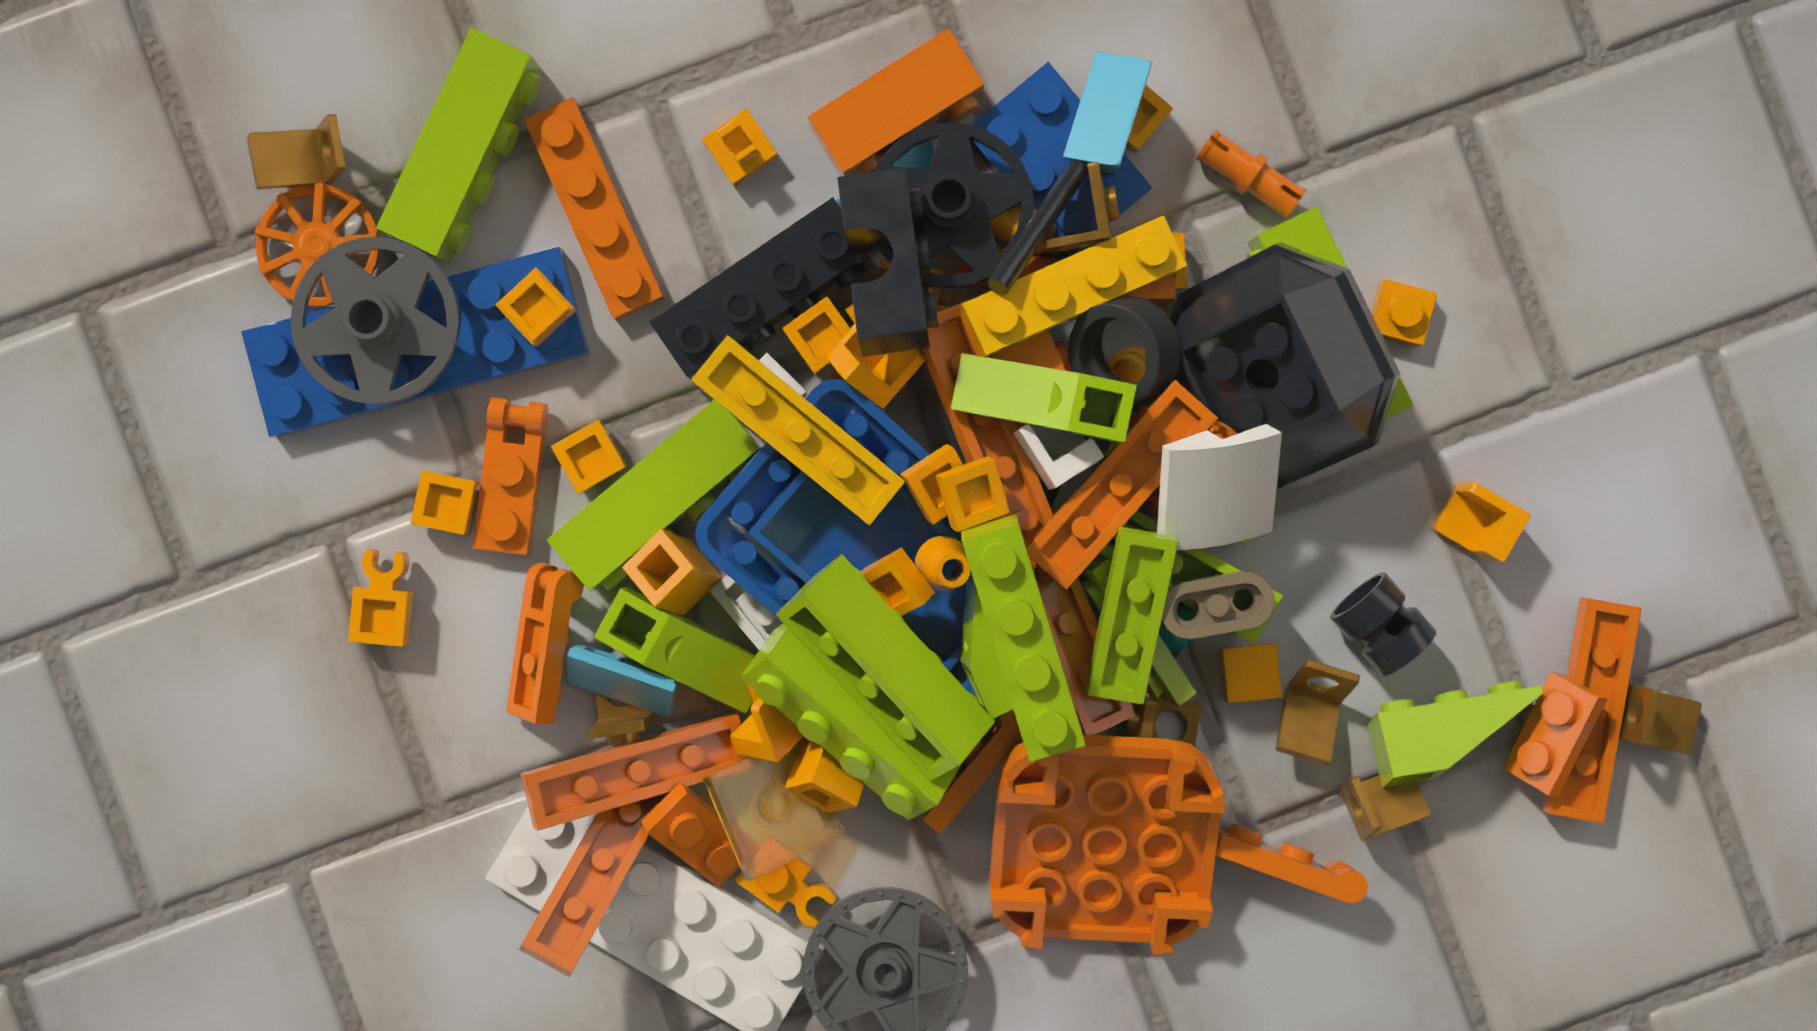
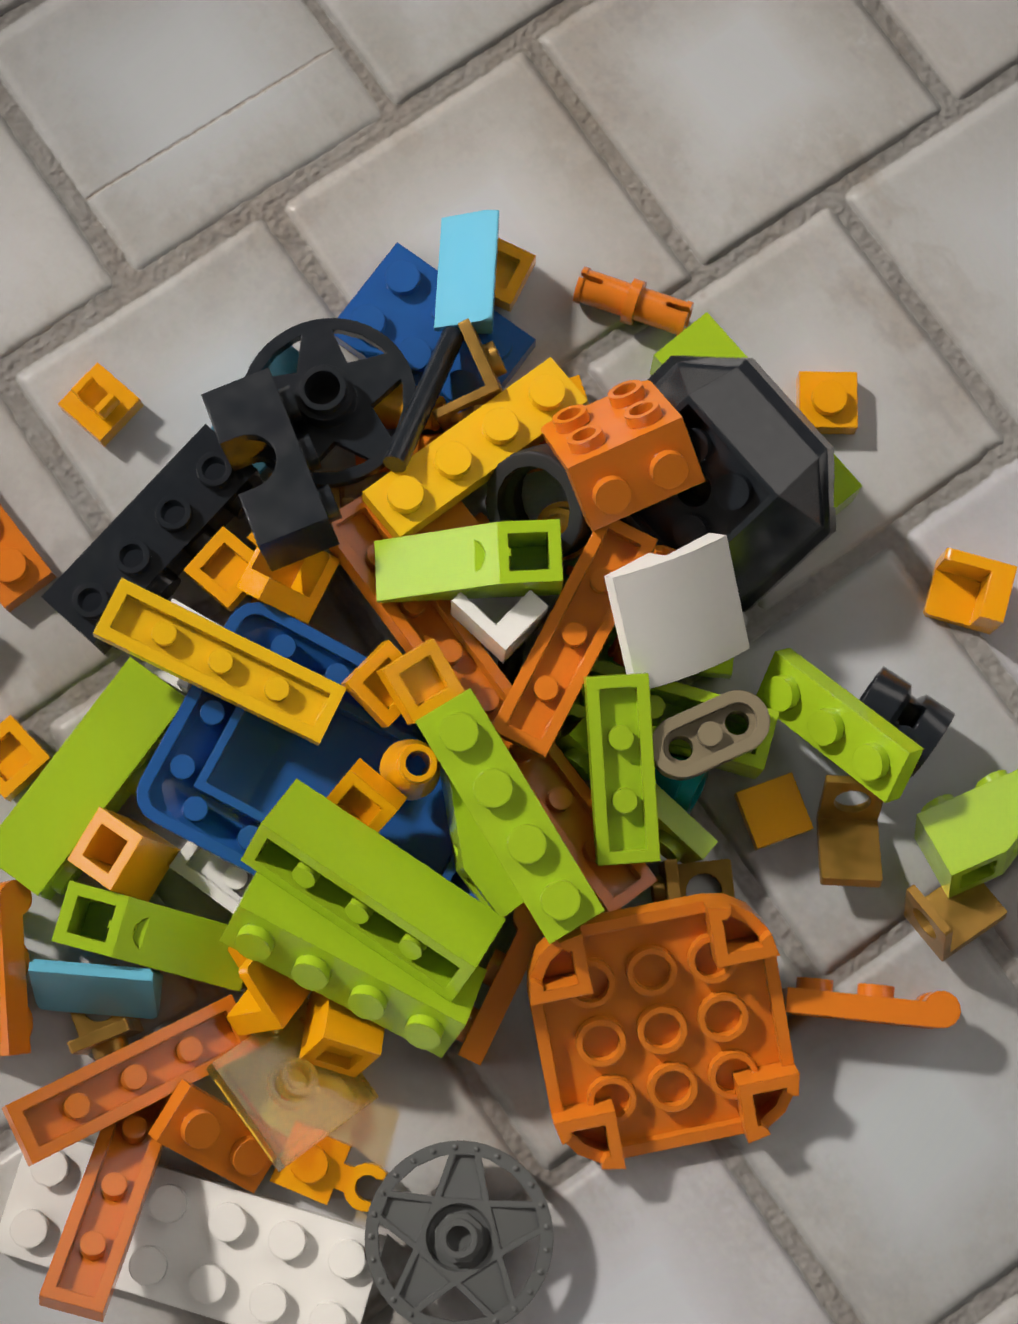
camera: 10 degrees left, 10 degrees down
(907, 95) = (265, 299): orange brick -> none
(1208, 328) = (623, 452): none -> orange bracket
(1331, 617) = (839, 725): none -> lime plate

